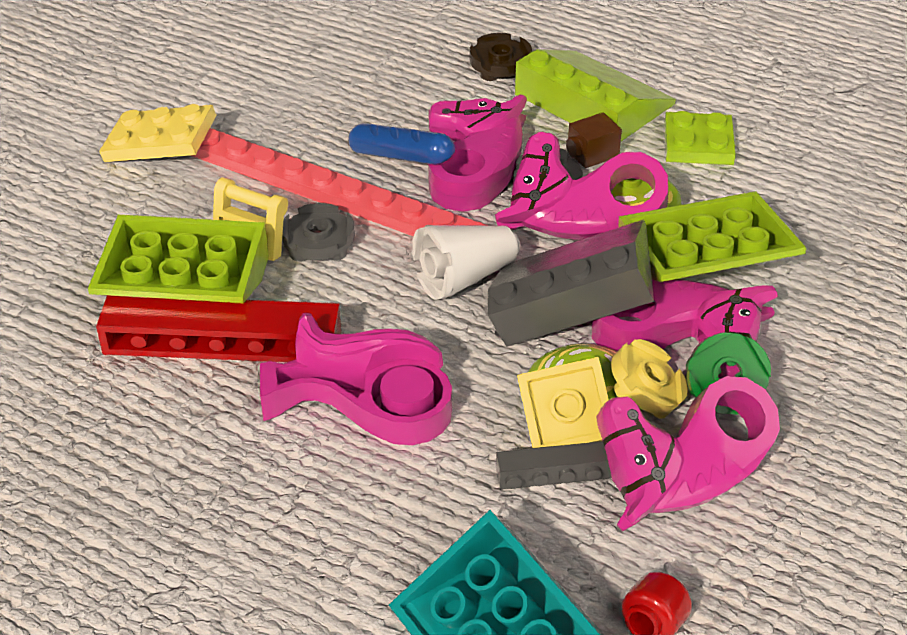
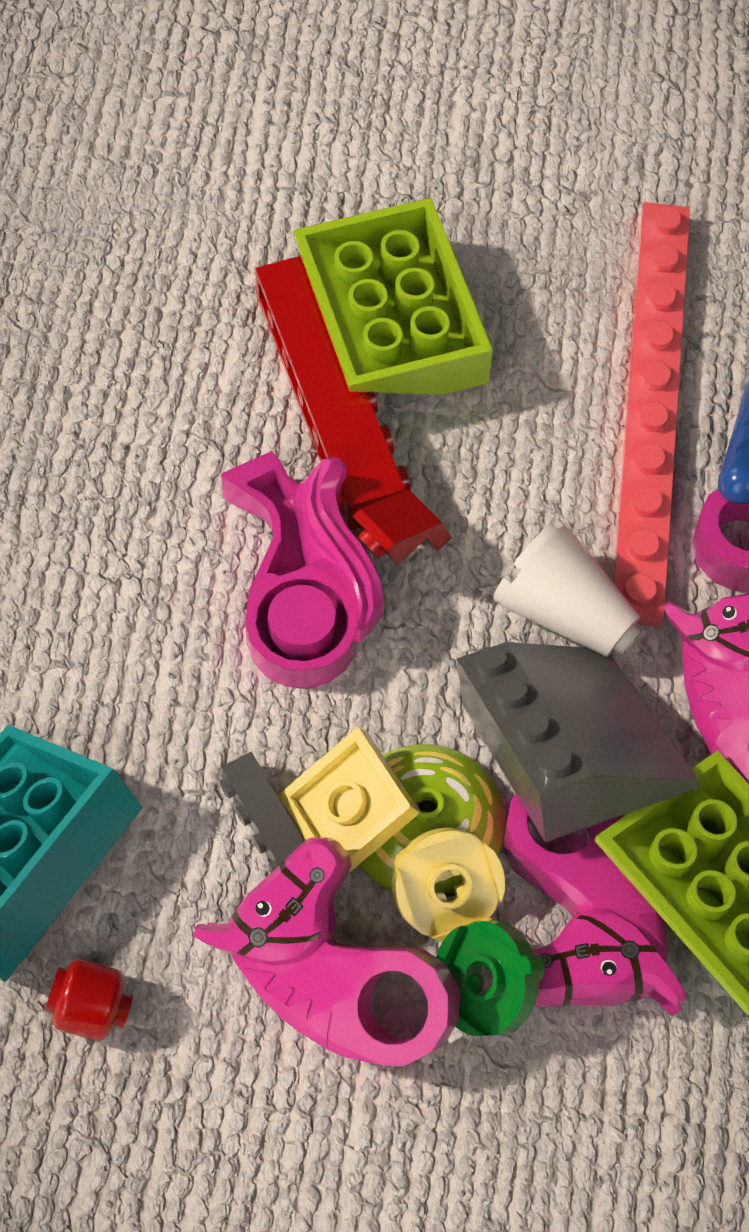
camera: 65 degrees right, 20 degrees up
(158, 133) = (642, 165): light yellow plate -> none
(275, 206) = (515, 330): light yellow plate -> none
(331, 243) = (546, 440): dark grey plate -> none
(366, 313) = (399, 526): none -> red slope

